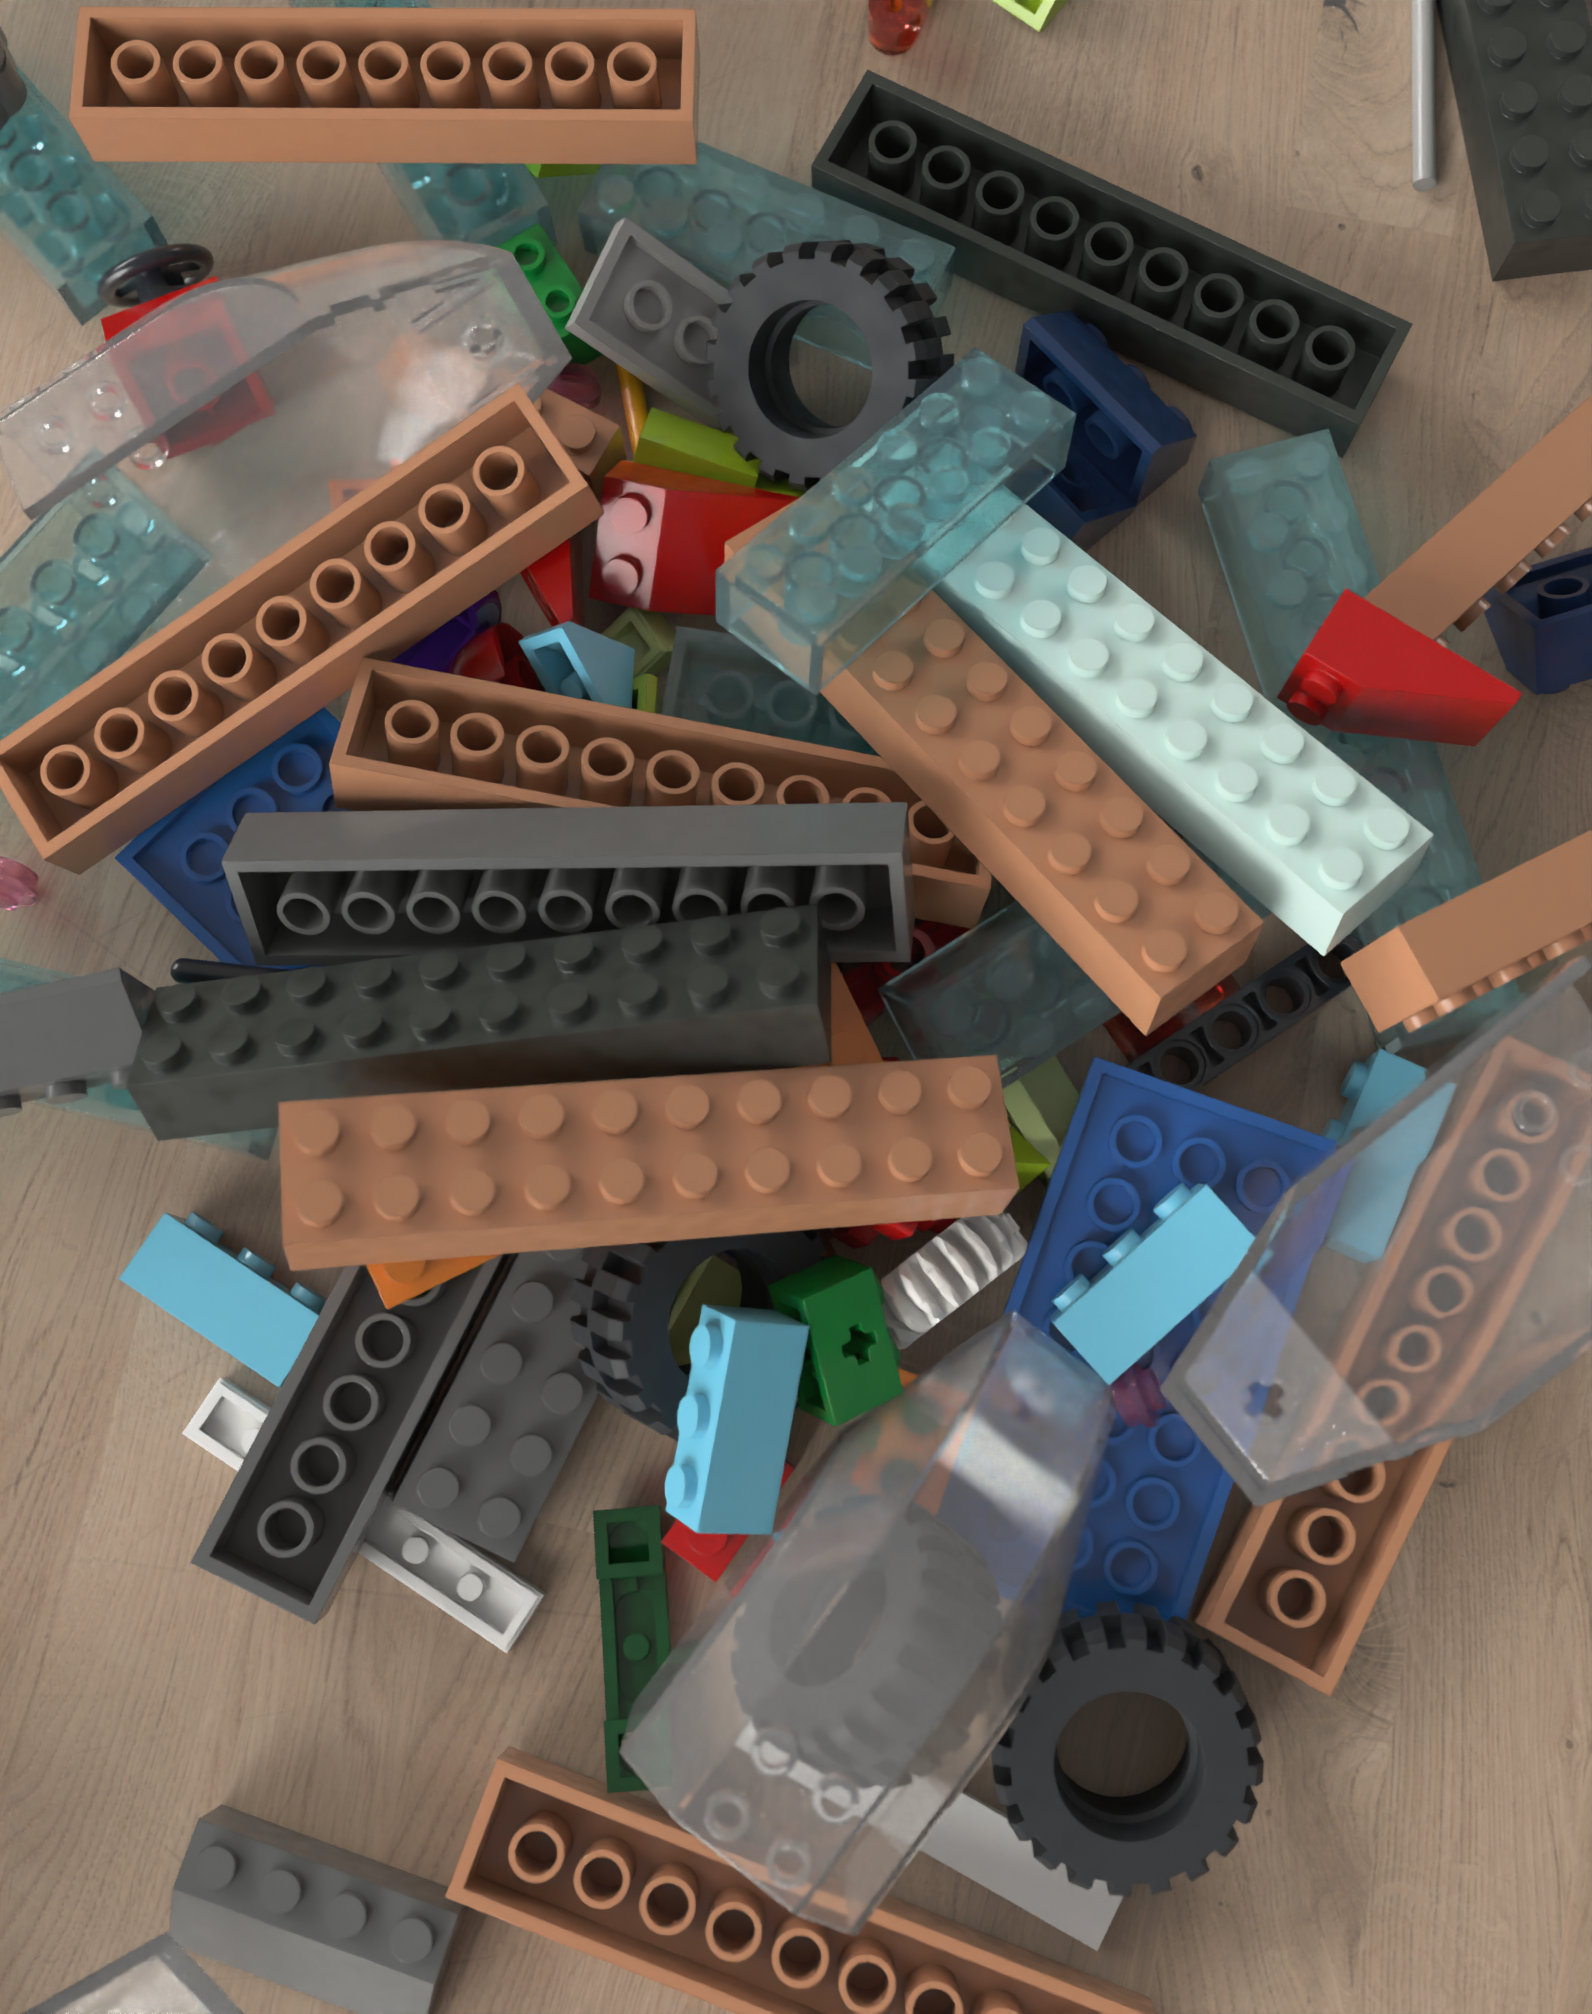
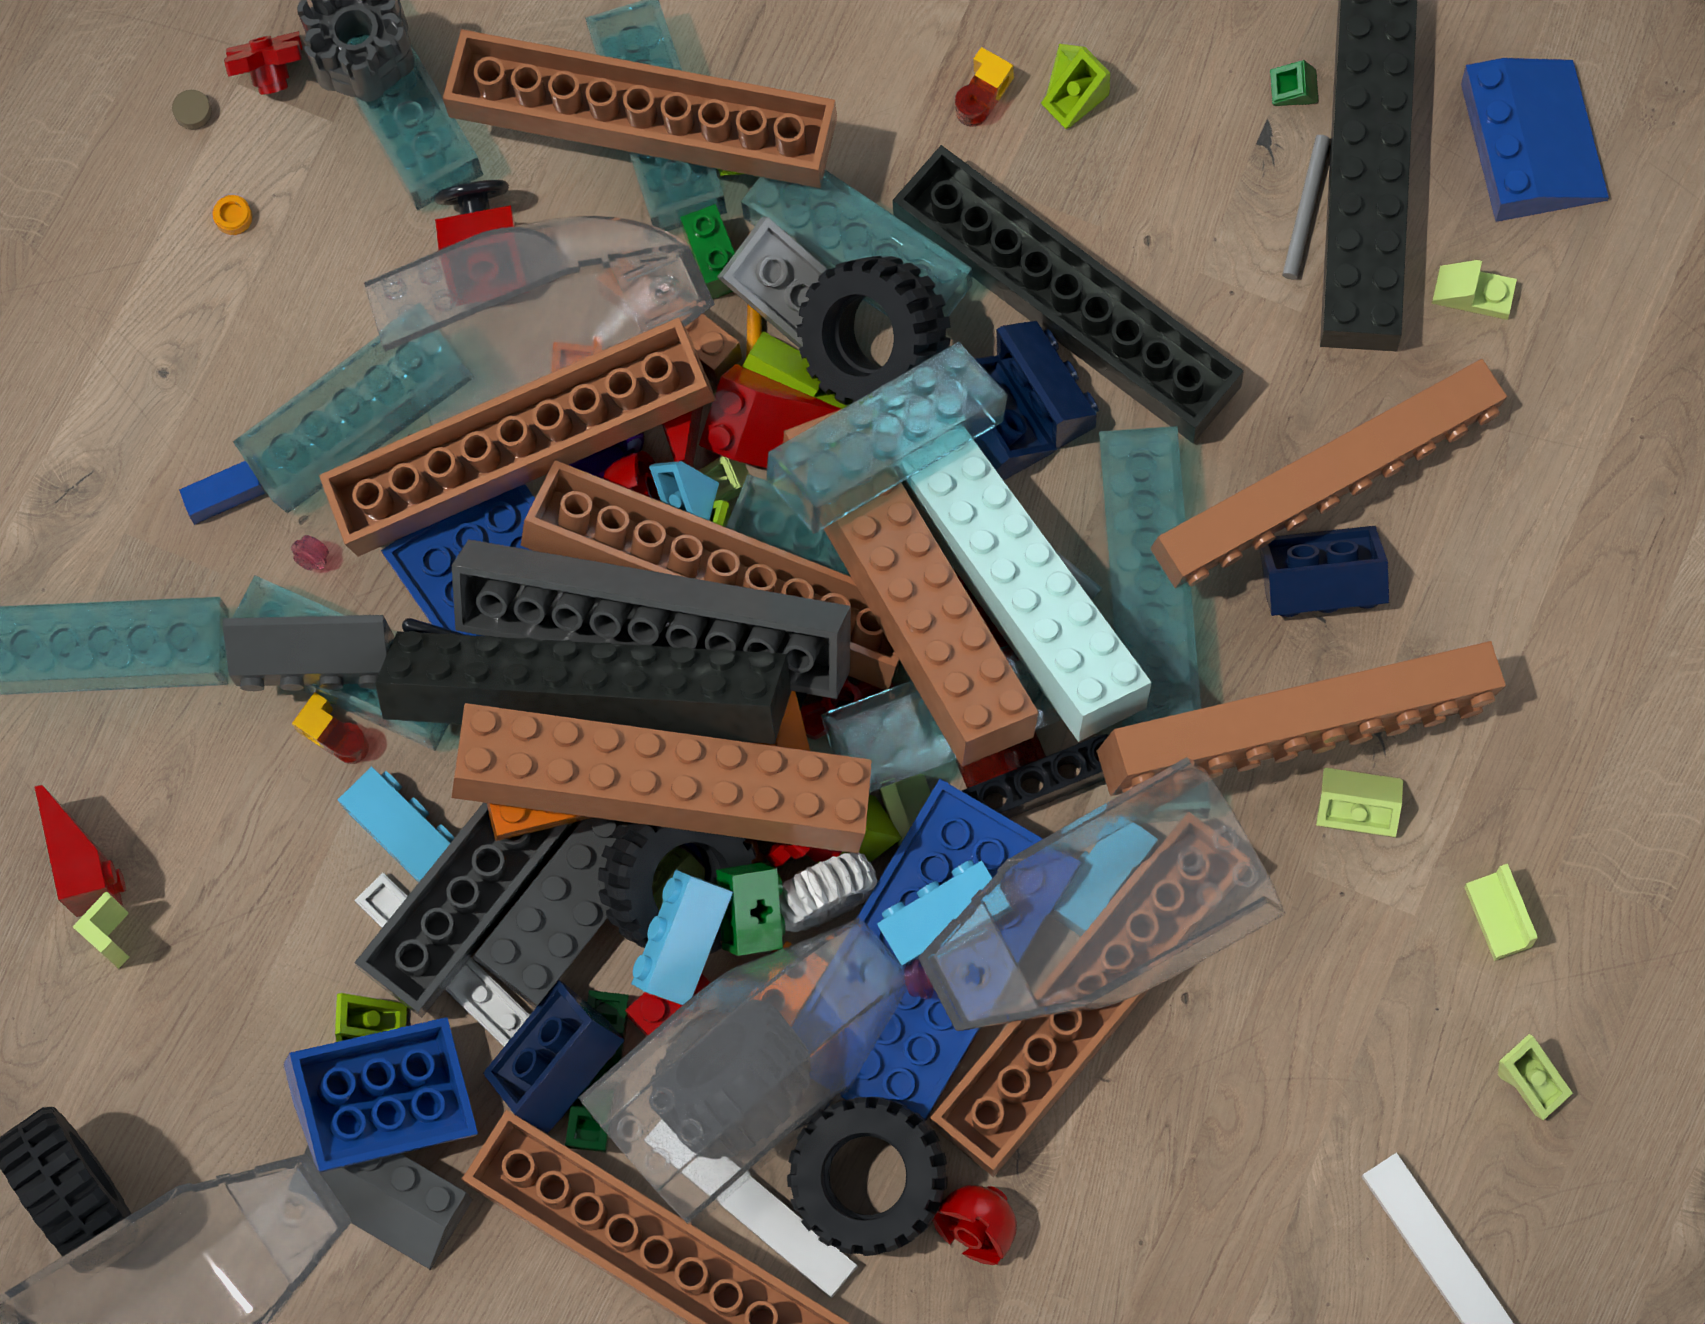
camera: 15 degrees right, 5 degrees down
(109, 1174) = (339, 739): none -> leg
(236, 1655) = (365, 1016): none -> lime slope
(279, 1785) = (380, 1094): none -> blue slope
(556, 1645) = (552, 1057): none -> dark blue slope
(578, 385) = (723, 311): clear pink plate -> none
(1321, 1777) = (978, 1220): none -> red cylinder
(1391, 681) = (1158, 589): red slope -> none

